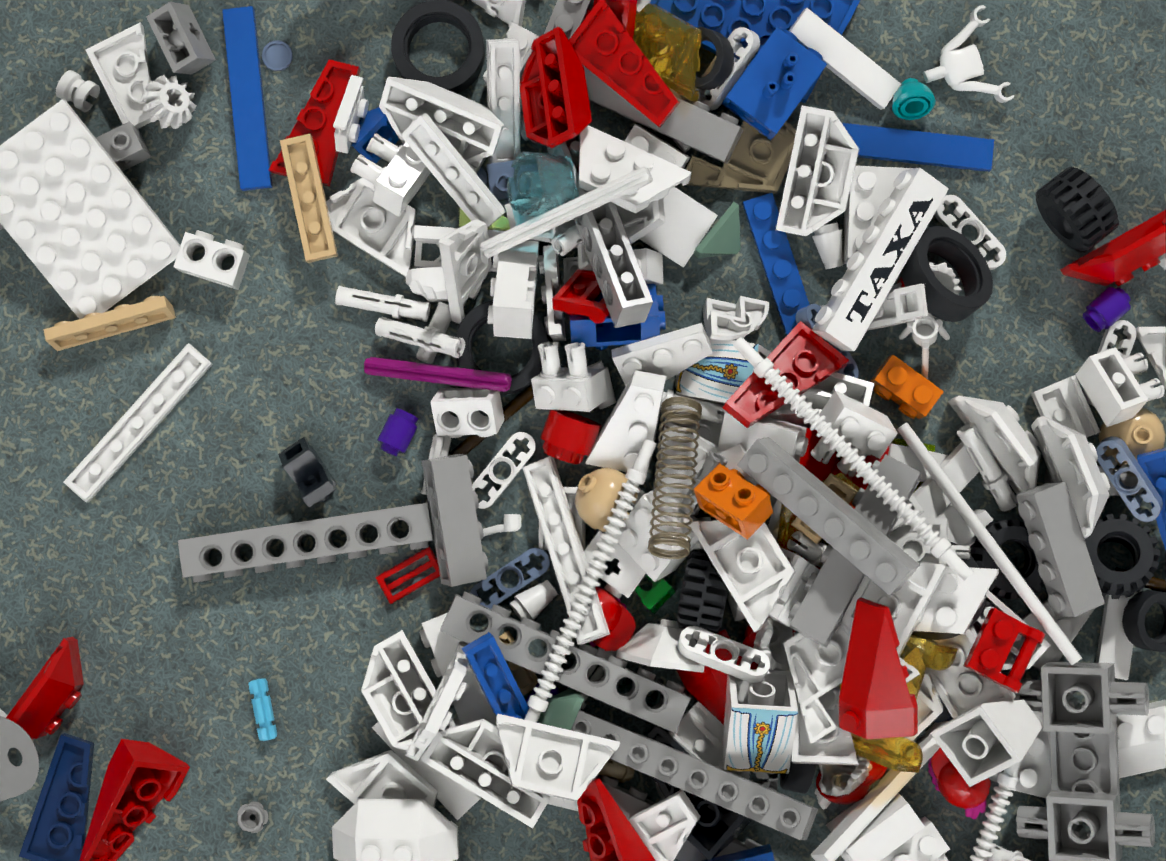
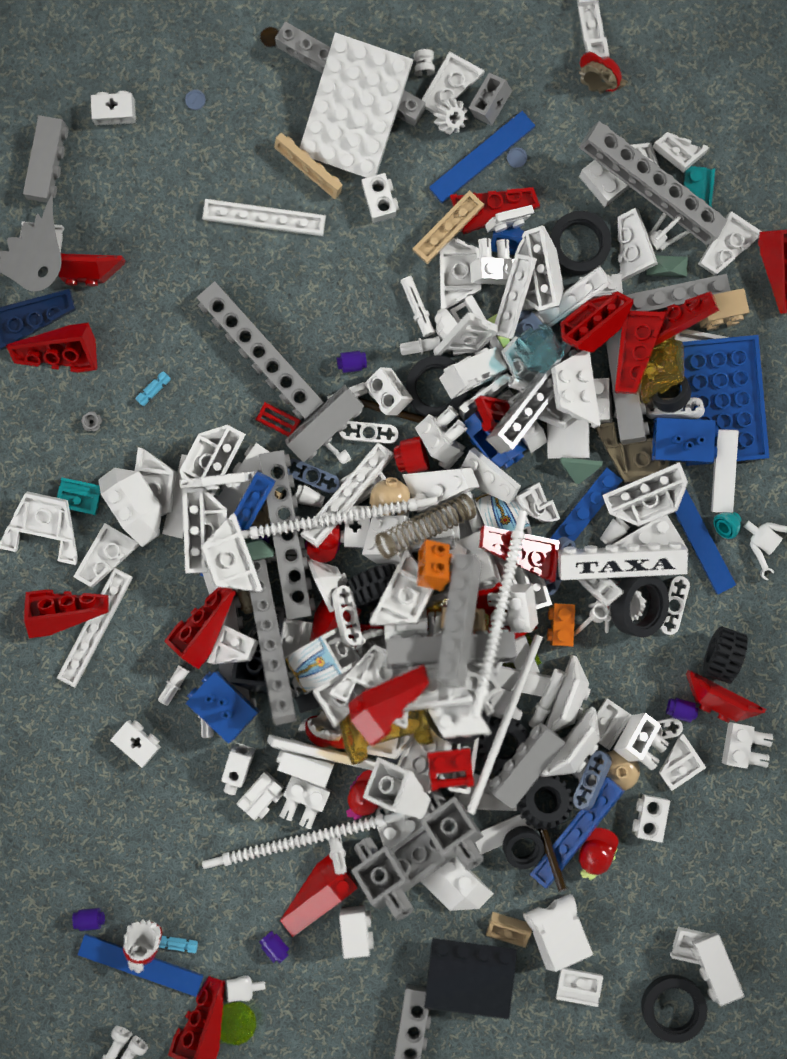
camera: 55 degrees right, 0 degrees up
(308, 472) = (297, 327): black brick -> none
(430, 340) = (413, 346): white pin -> none
(437, 374) = (398, 362): magenta axle -> none
(566, 212) = (531, 371): white axle -> none
(657, 596) = (354, 562): green tile -> none

